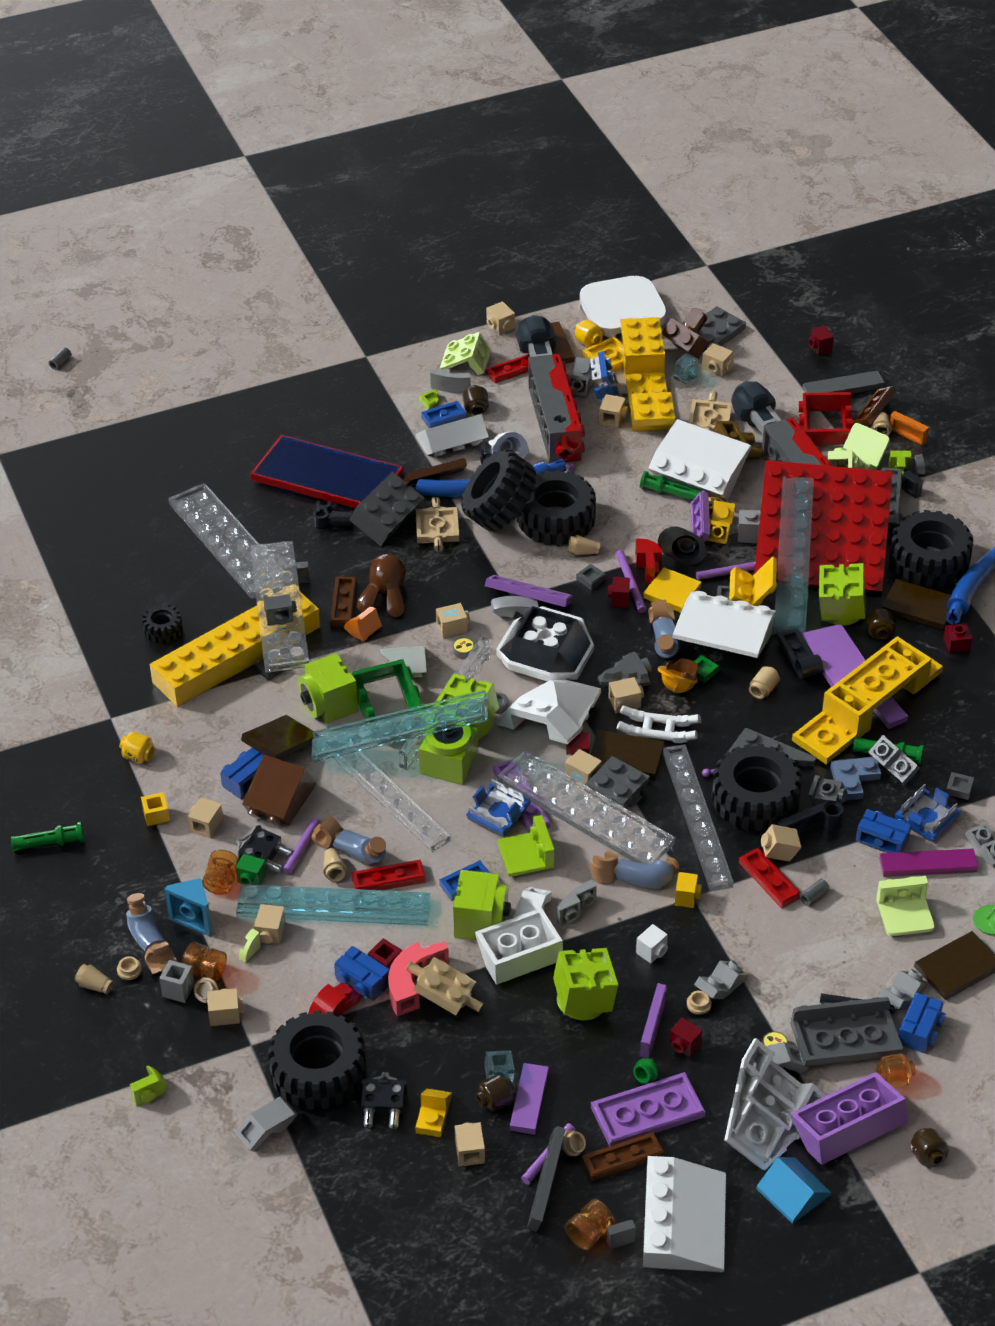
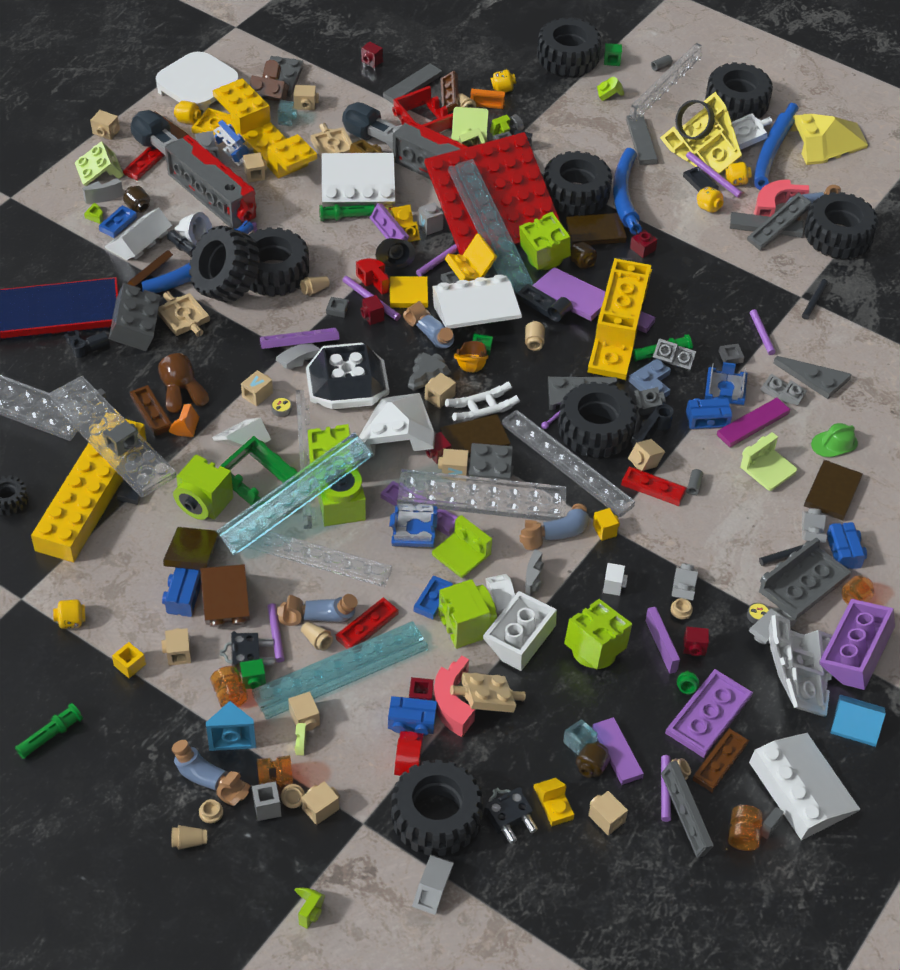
camera: 35 degrees left, 5 degrees up
(940, 416) = (503, 81): none -> yellow head

